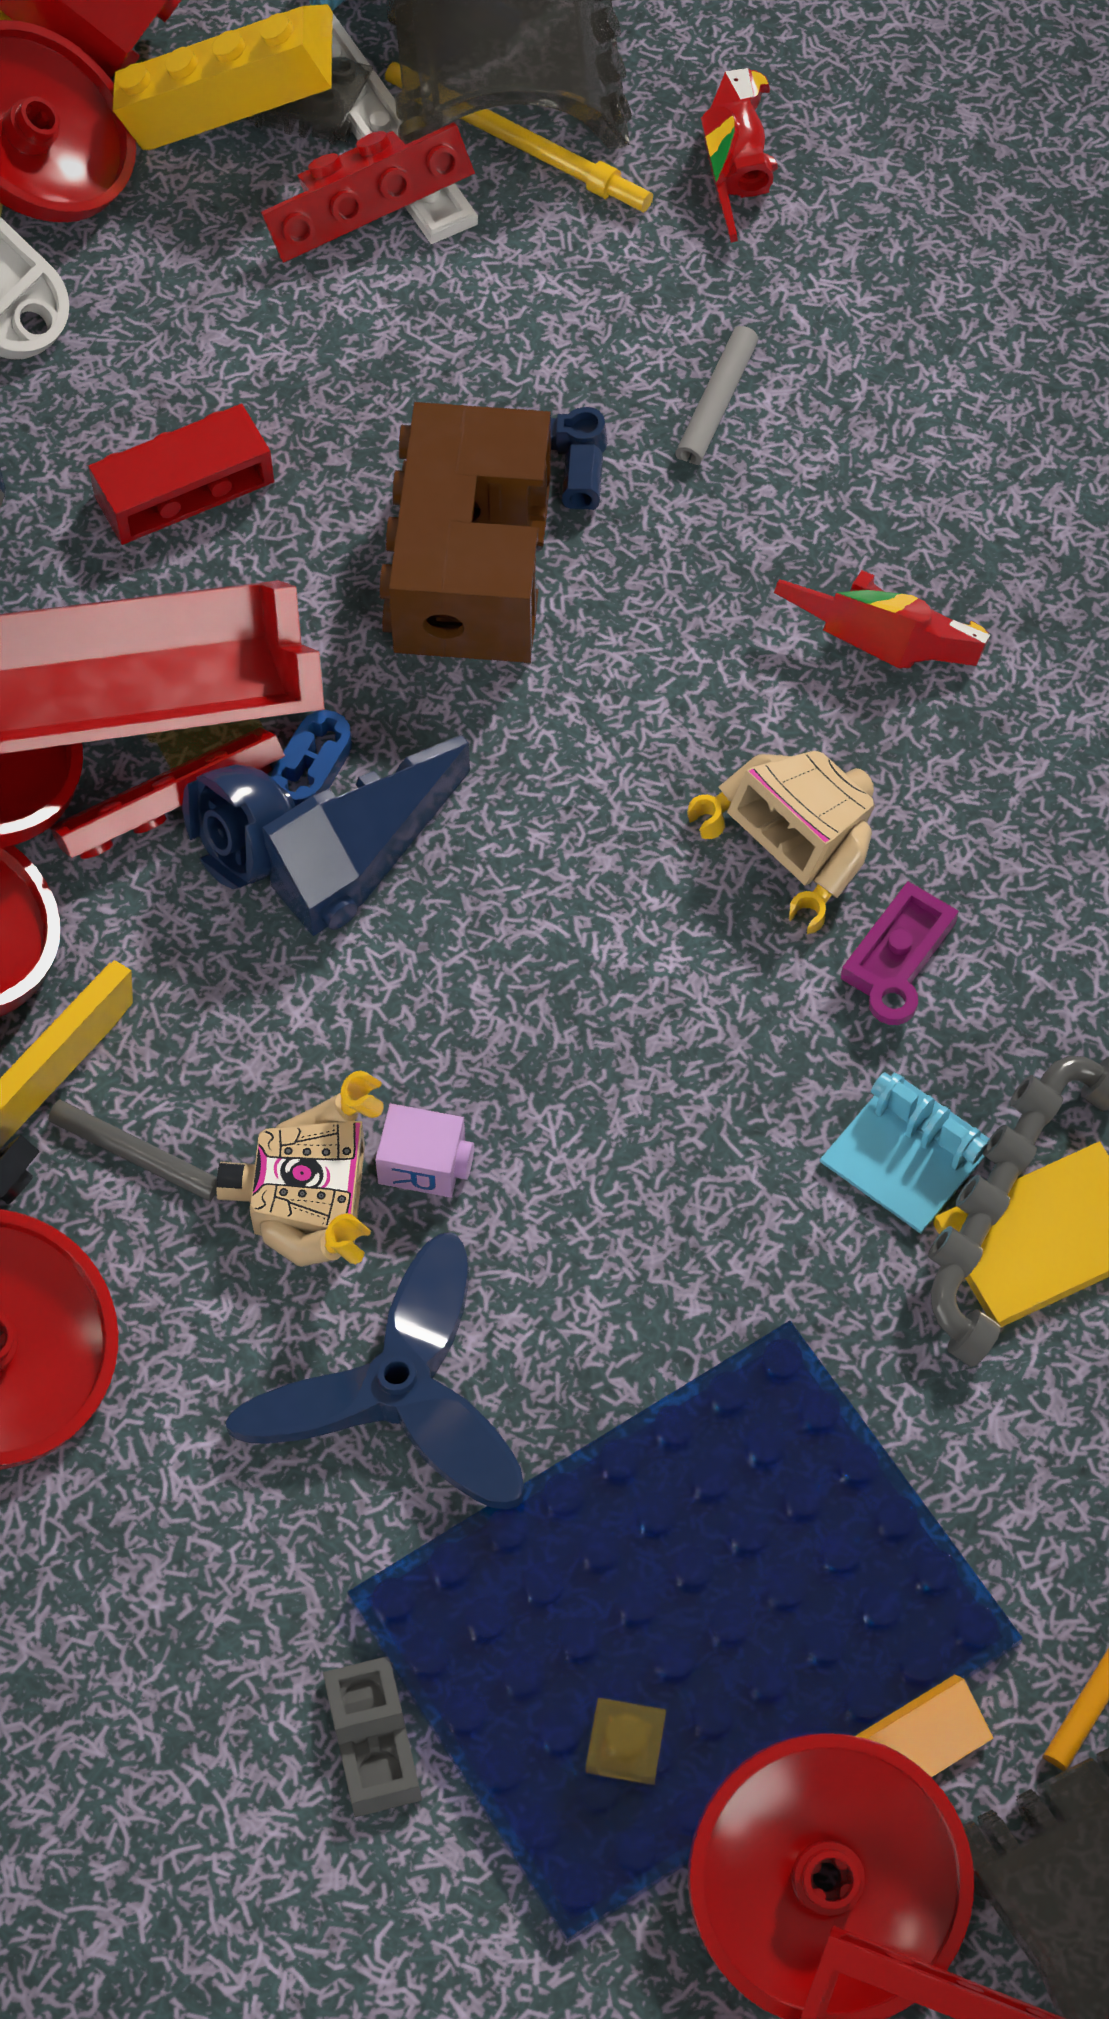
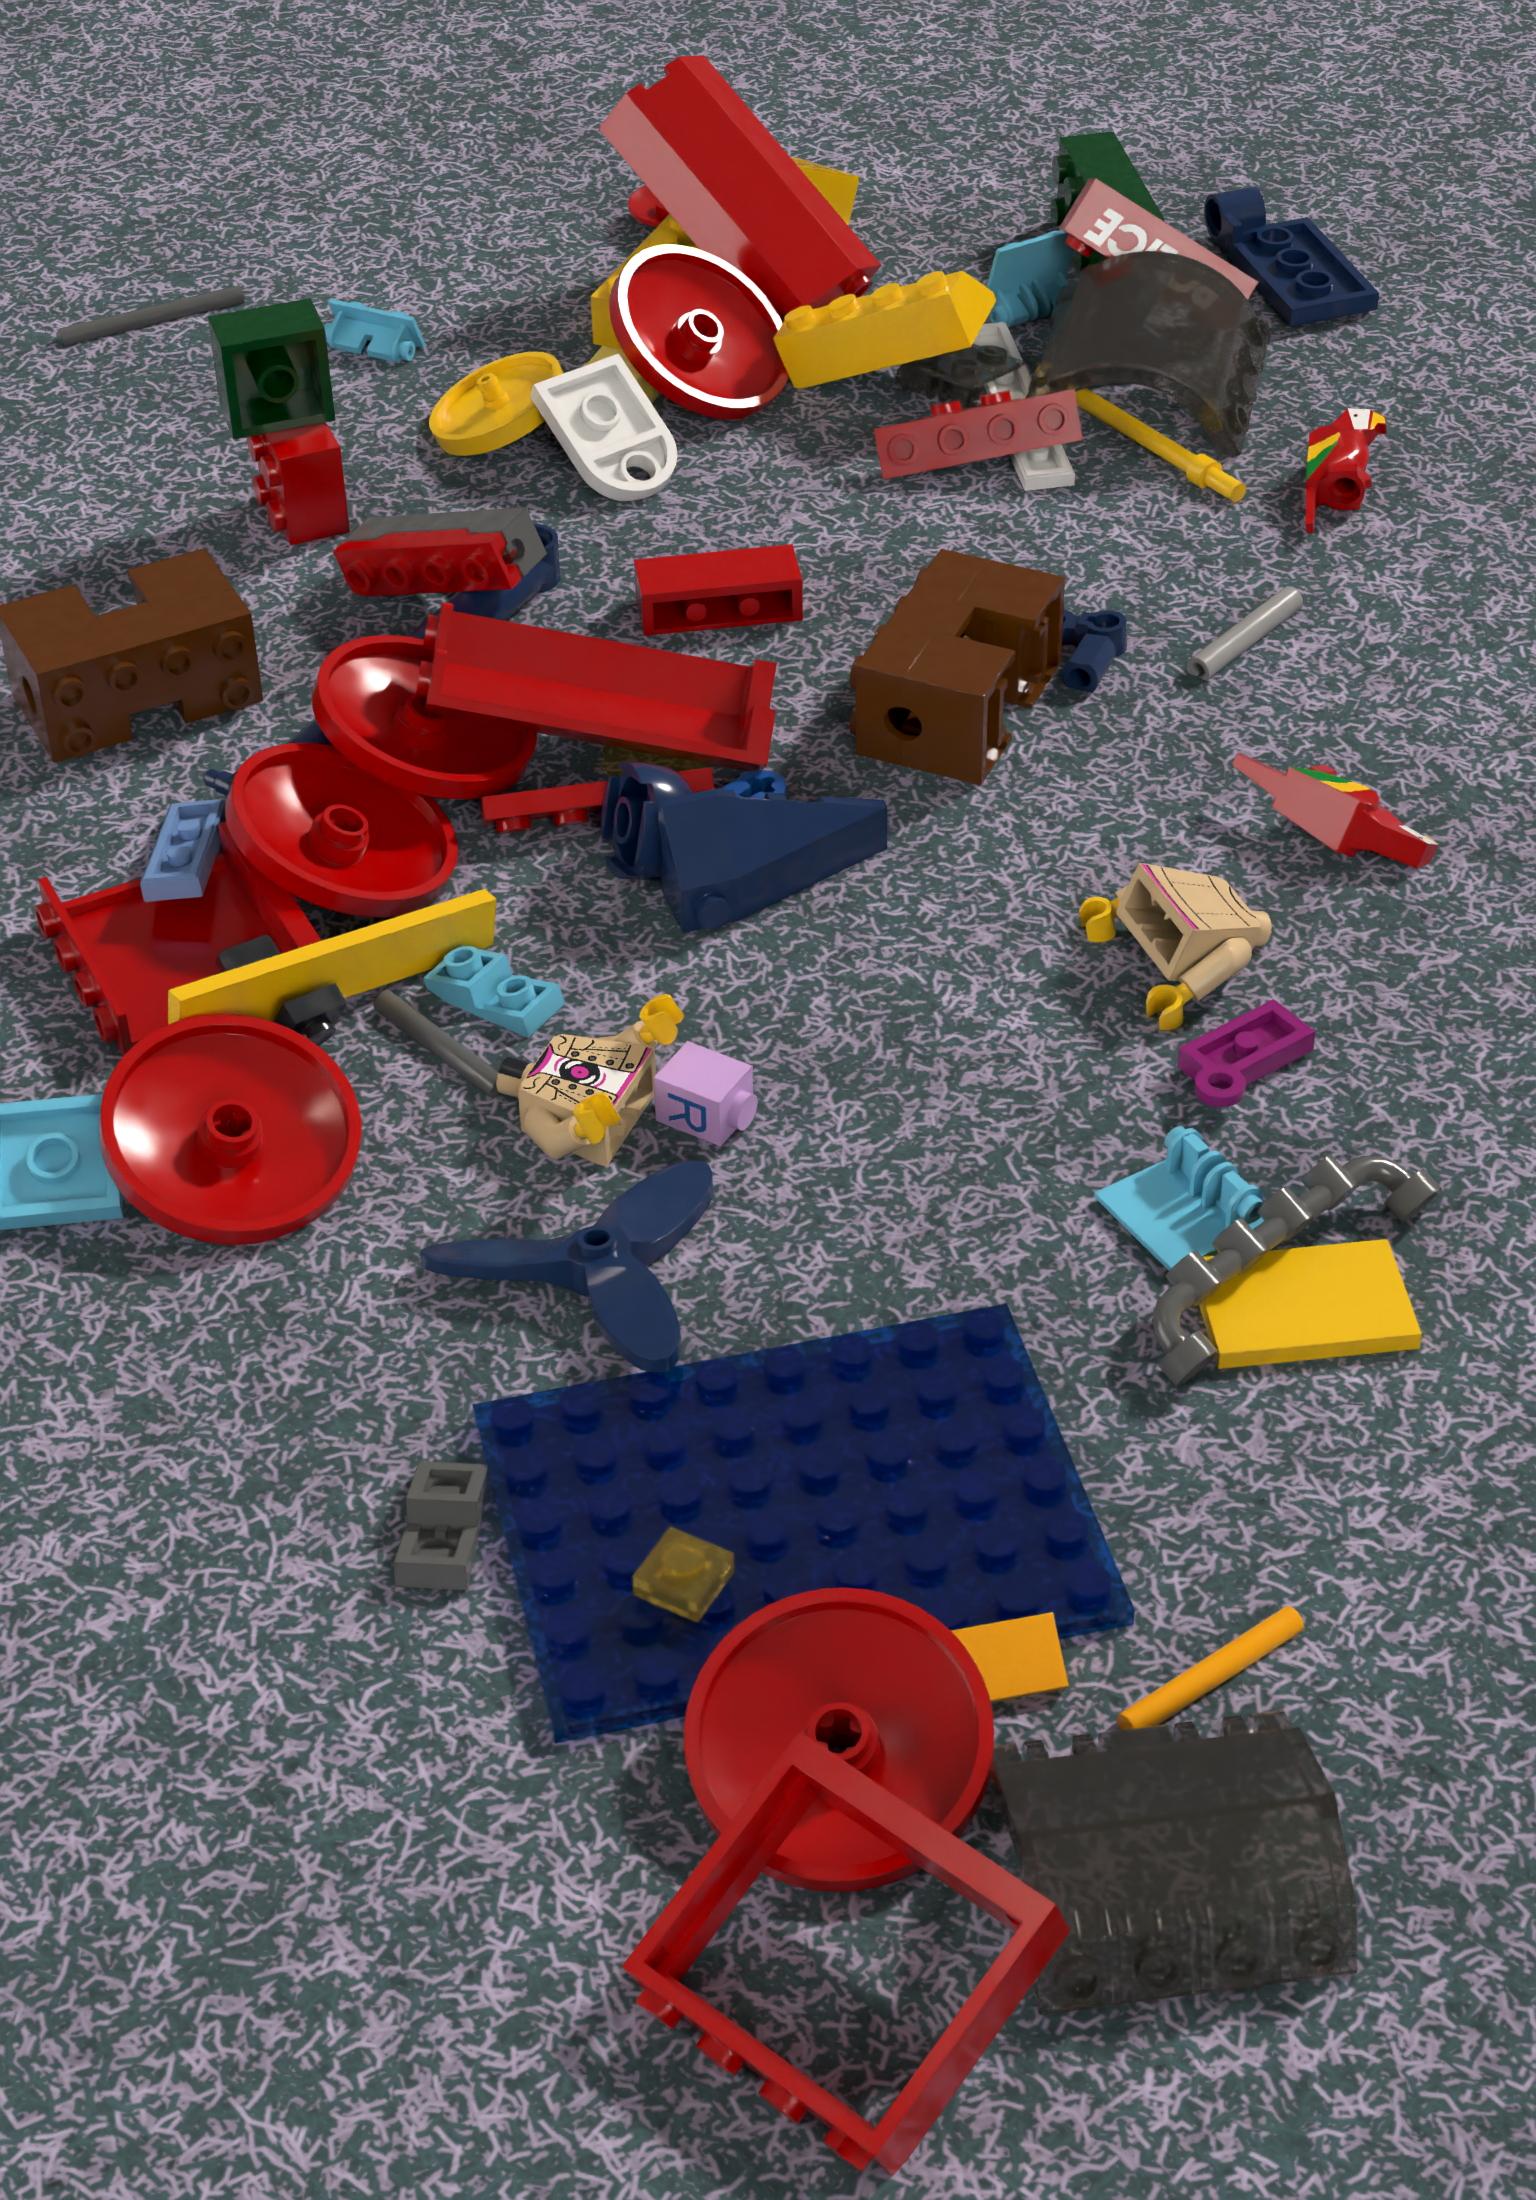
camera: 20 degrees right, 20 degrees down
(153, 1068) = (485, 987): none -> medium azure slope

